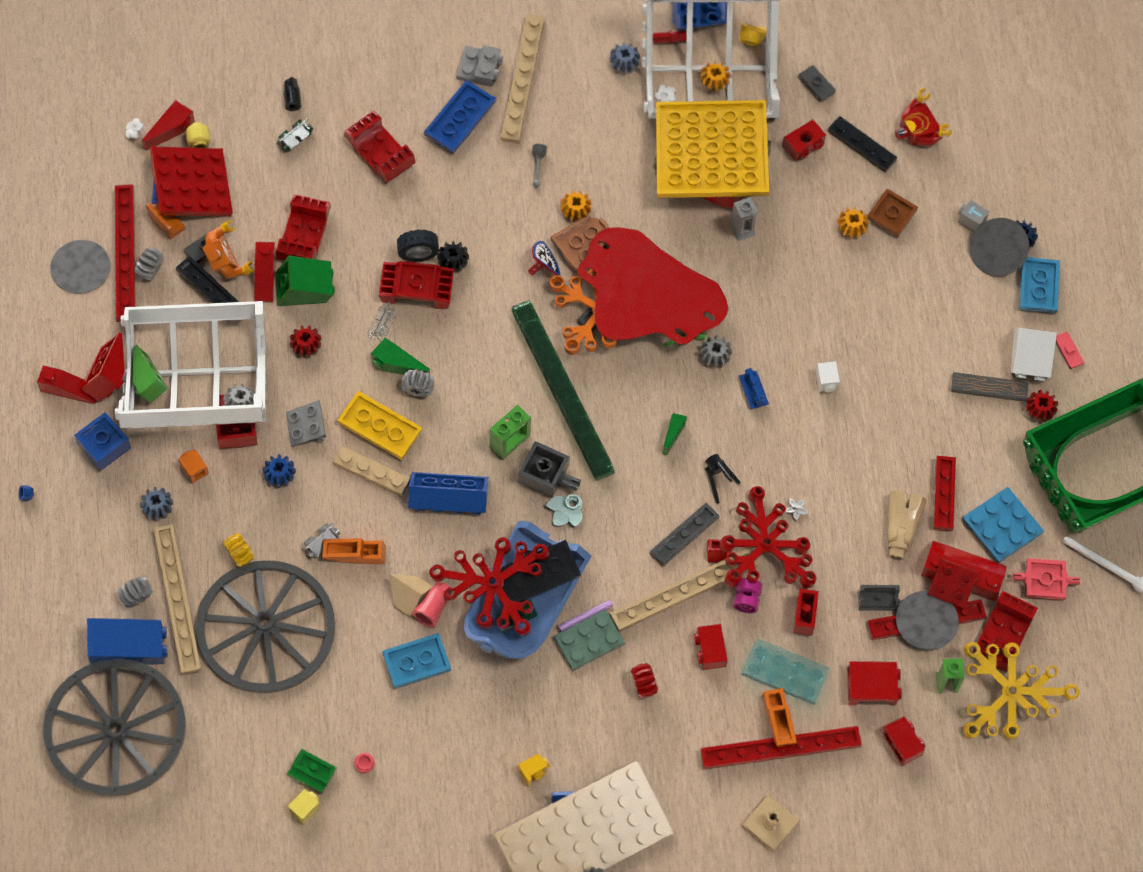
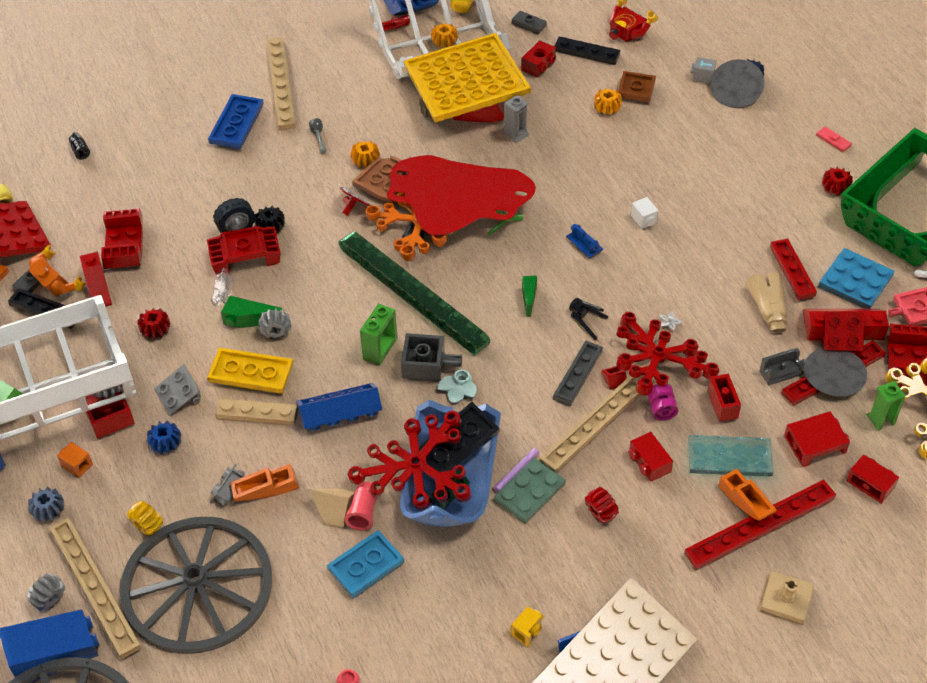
camera: 15 degrees left, 15 degrees down
(288, 138) = (85, 177): hinge -> none
(304, 281) = (136, 276): green slope -> none
(378, 147) = (171, 162): red plate -> none
(480, 65) = (241, 82): light grey plate -> none
(624, 57) = (362, 45): sand blue gear -> none
(715, 358) = (537, 222): light grey gear -> none
(989, 386) = (784, 182): dark grey tile -> none
(1033, 353) = (808, 144): white slope -> none
(1039, 285) = (784, 101): dark azure plate -> none

